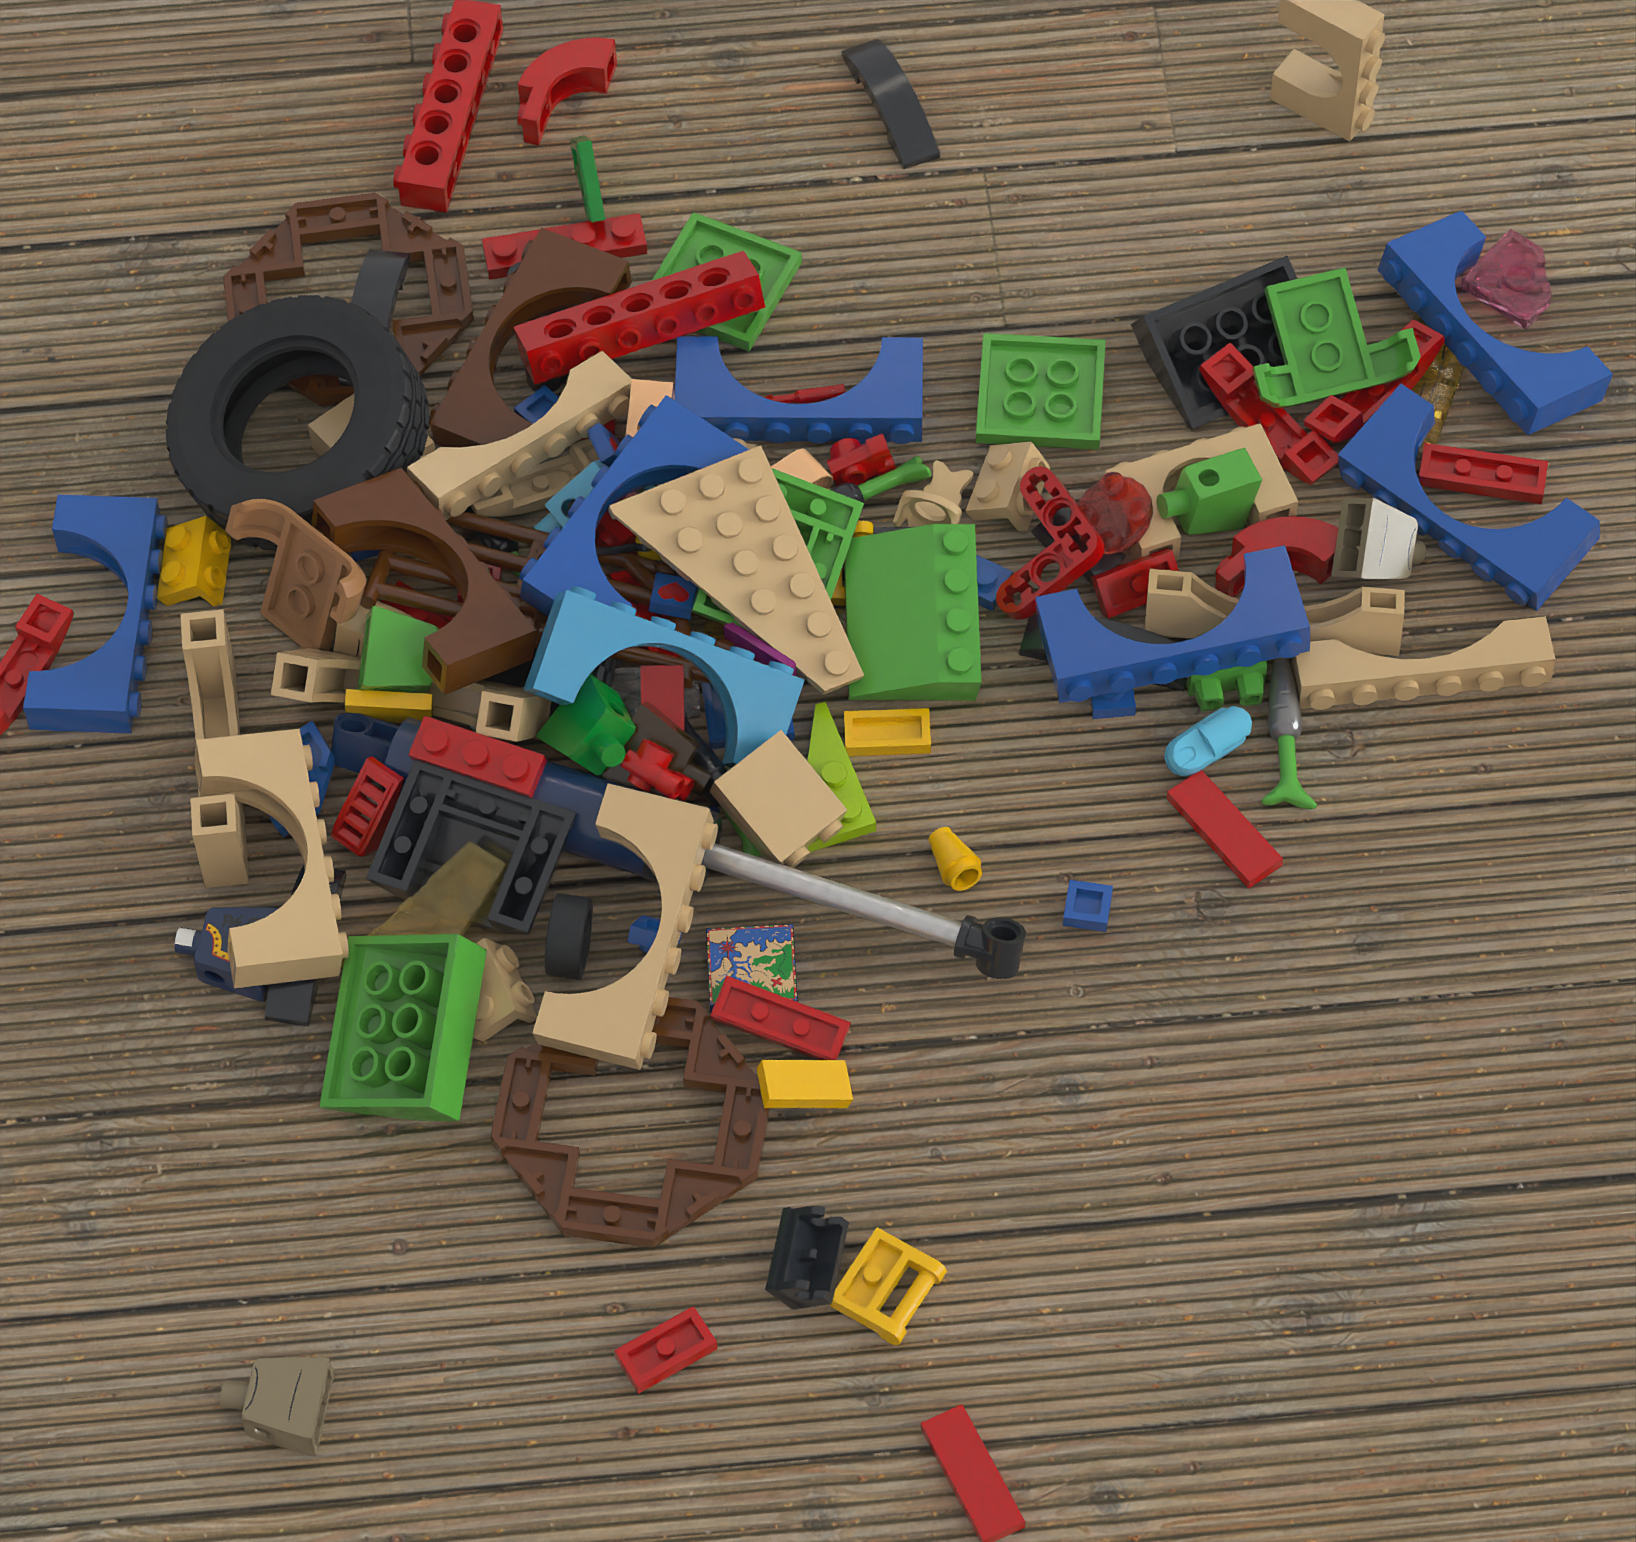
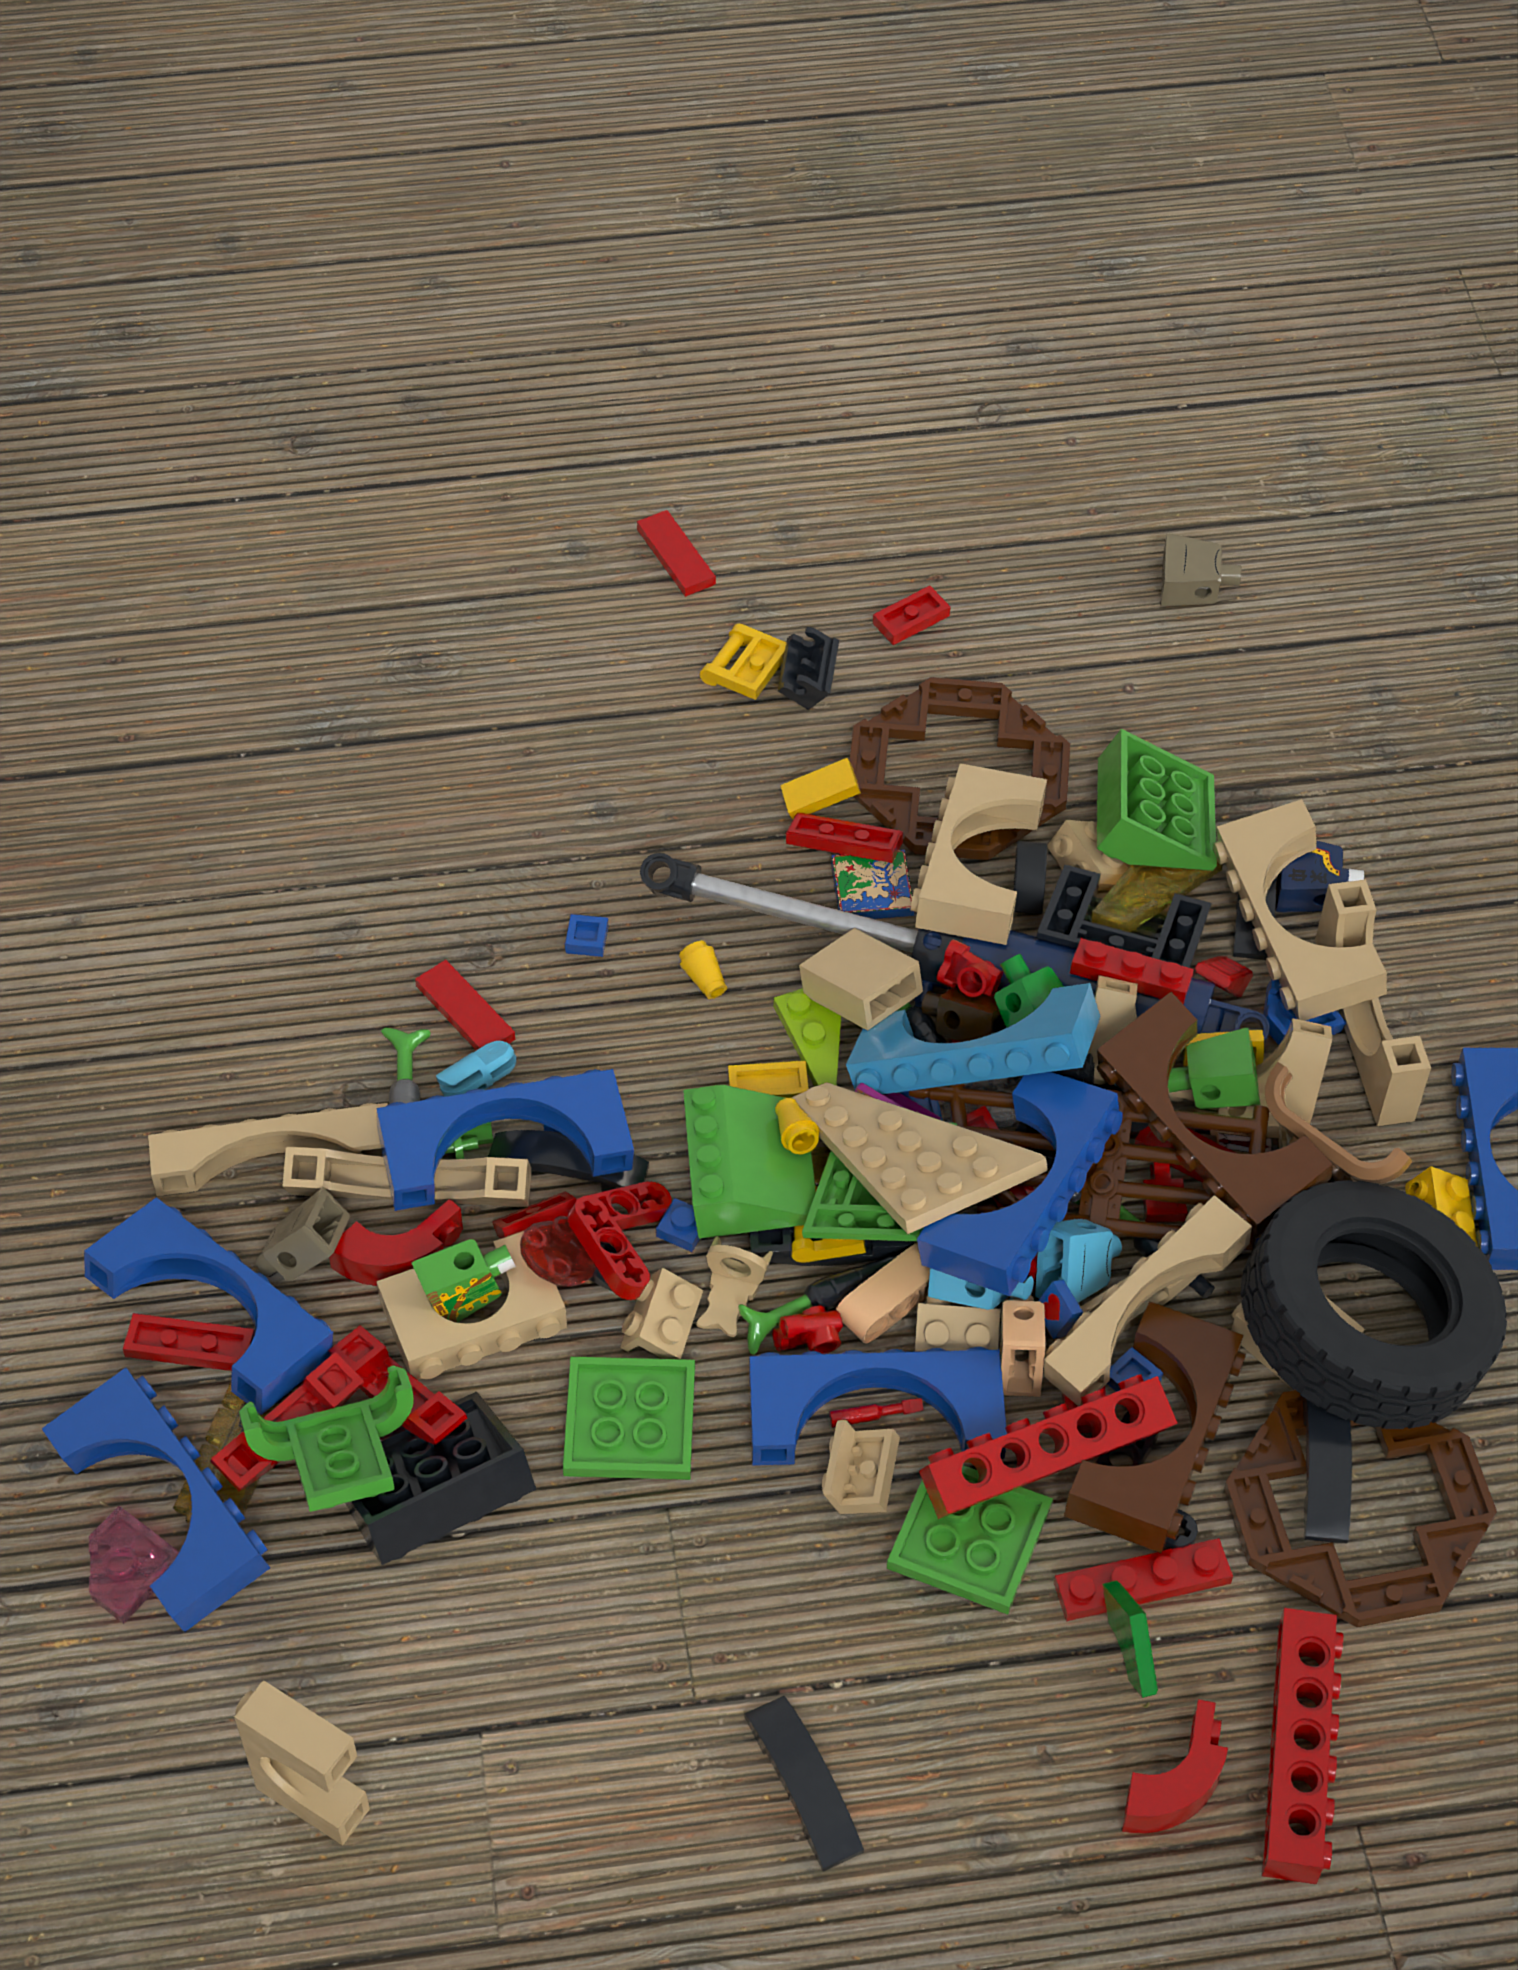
camera: 175 degrees right, 5 degrees down
(819, 334) = (860, 1469): none -> tan bracket
(862, 629) = (796, 1128): none -> yellow cone

